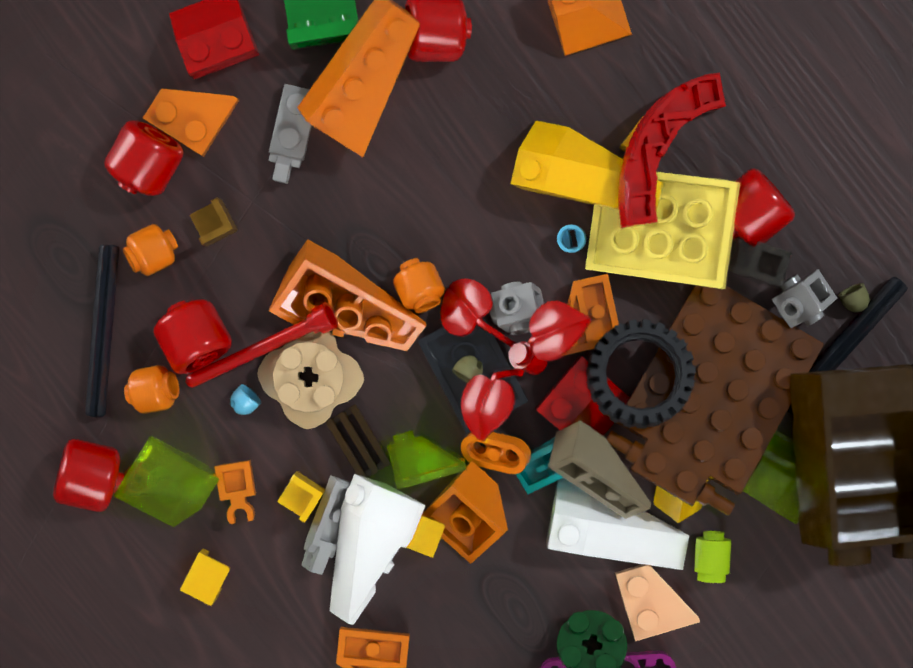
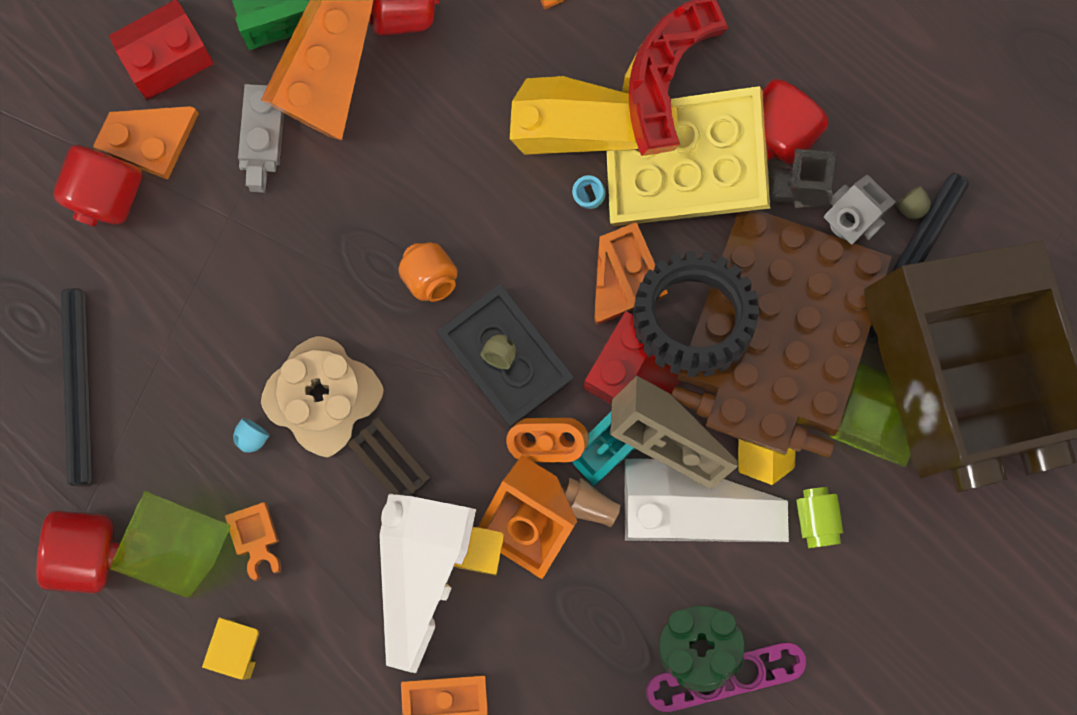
camera: 10 degrees left, 10 degrees down
(150, 249) = (118, 284): orange head -> none
(152, 389) = (140, 440): orange head -> none
(192, 335) = (178, 370): red head -> none
(213, 222) = (187, 245): pearl gold panel -> none
(301, 495) = (332, 533): yellow panel -> none
(320, 319) = (320, 323): red piece -> none
(323, 533) = (363, 571): light grey hinge -> none
(357, 302) = (340, 303): orange wedge -> none
(421, 459) = (464, 462): clear neon green slope -> none
(515, 306) = (543, 274): light grey brick -> none
(521, 509) = (589, 503): none -> medium nougat cone
(554, 330) = (529, 374): red plant -> none
(652, 603) = (761, 586): light nougat wing -> none

